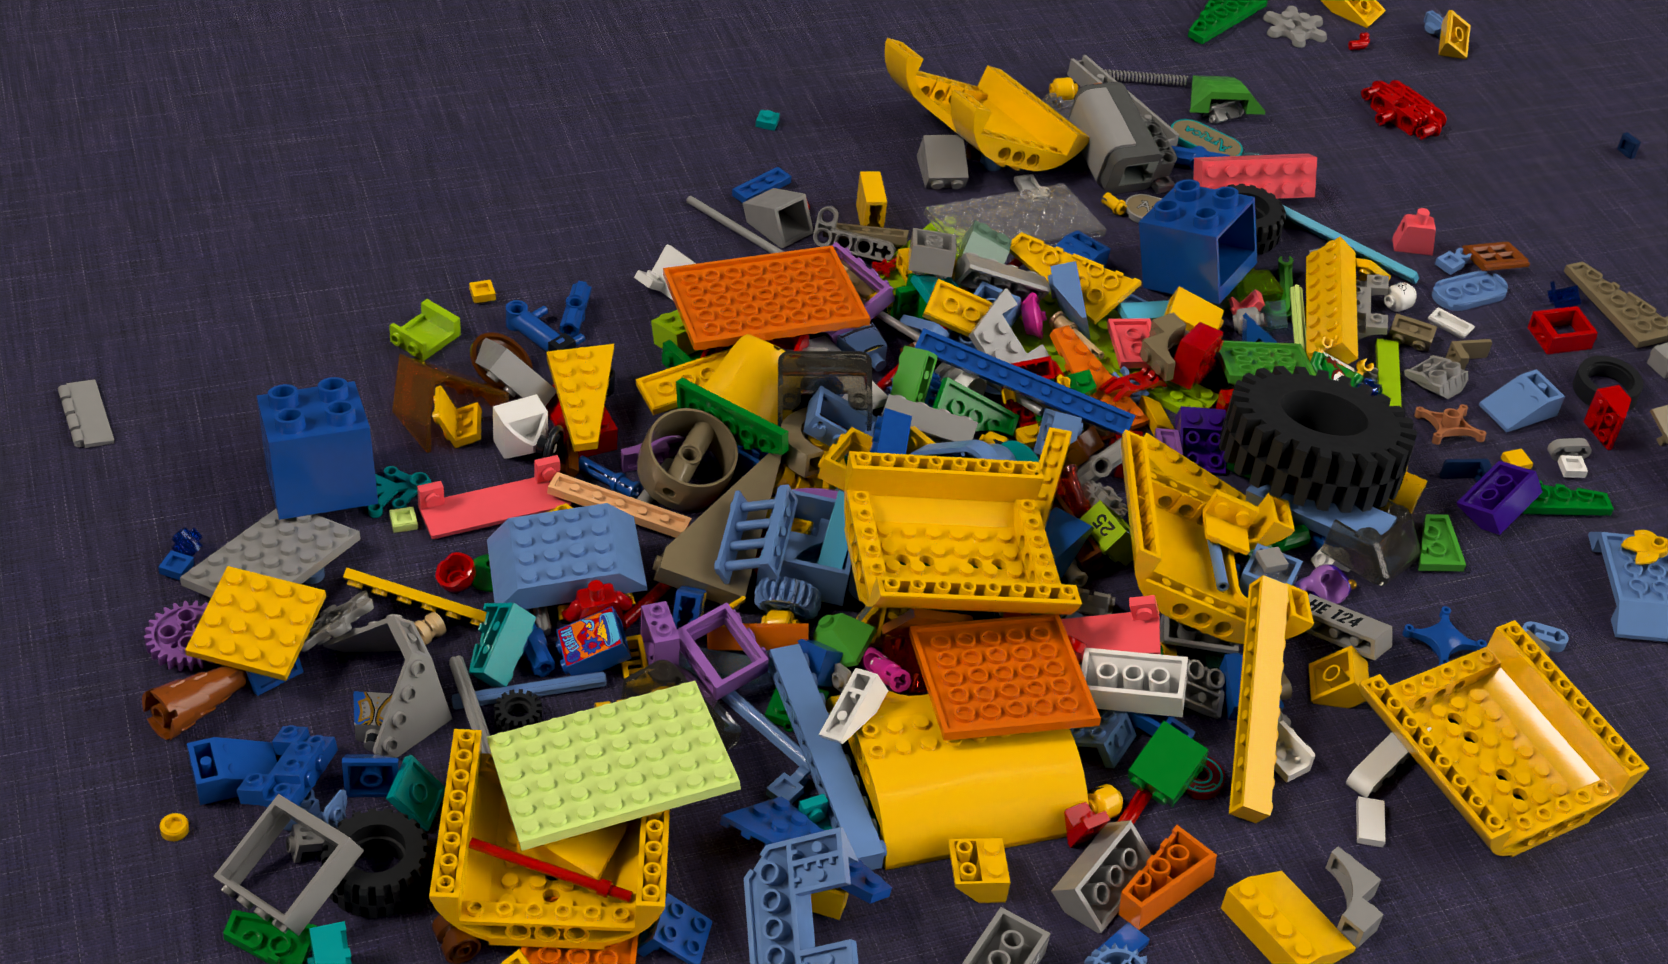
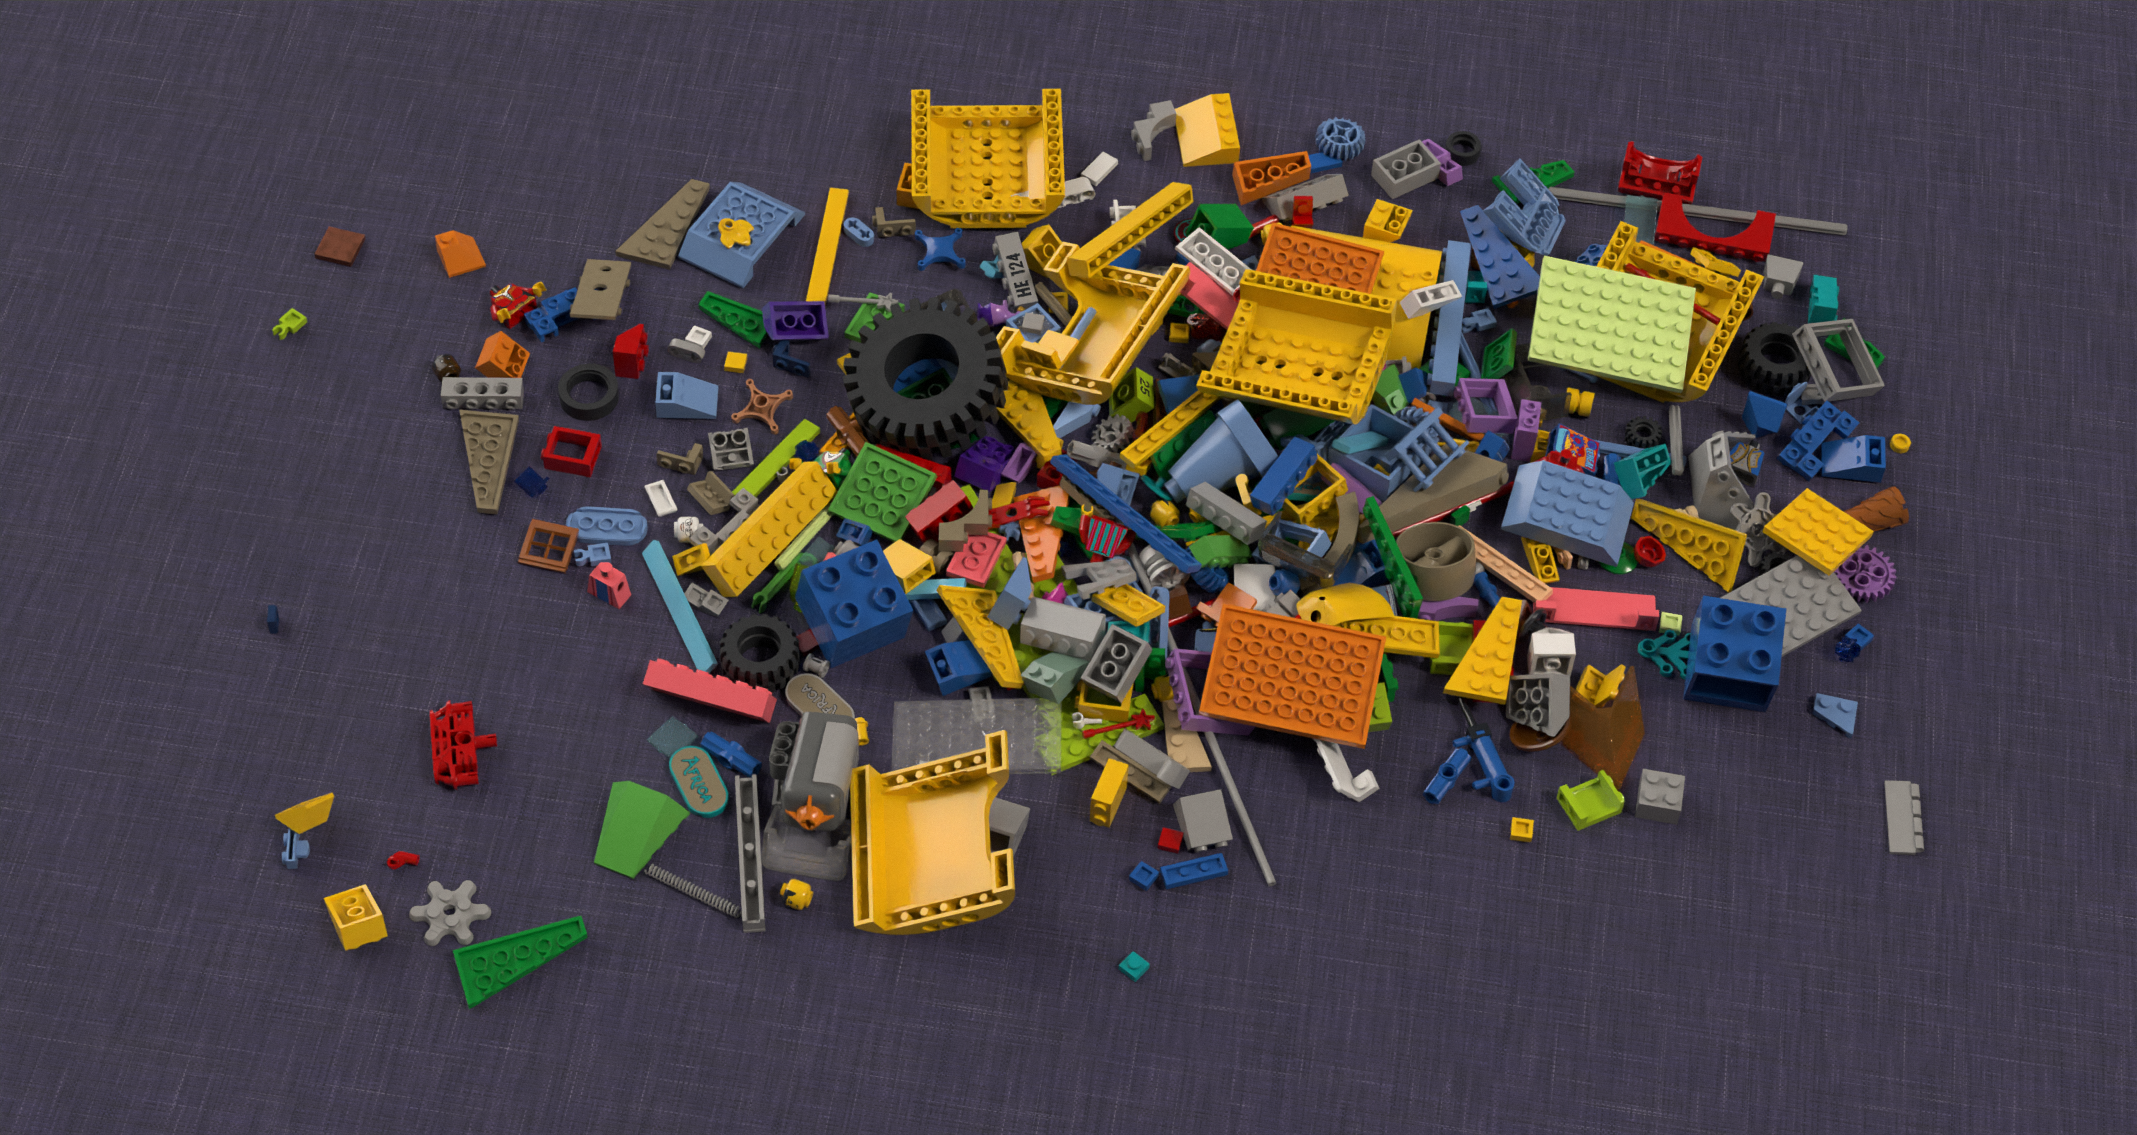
camera: 150 degrees left, 10 degrees up
(185, 487) = (1836, 712): none -> medium blue wing
(354, 348) = (1660, 796): none -> light grey brick
(416, 792) = (1736, 393): teal tile -> none
(629, 415) = (1453, 645): none -> lime panel
(737, 720) = (1499, 356): none -> green tile
(801, 171) = (1143, 875): none -> blue plate
(879, 351) = (1230, 595): none -> orange bracket
(1440, 556) = (882, 301): none -> light grey piece
(1558, 610) = (827, 245): none -> yellow tile

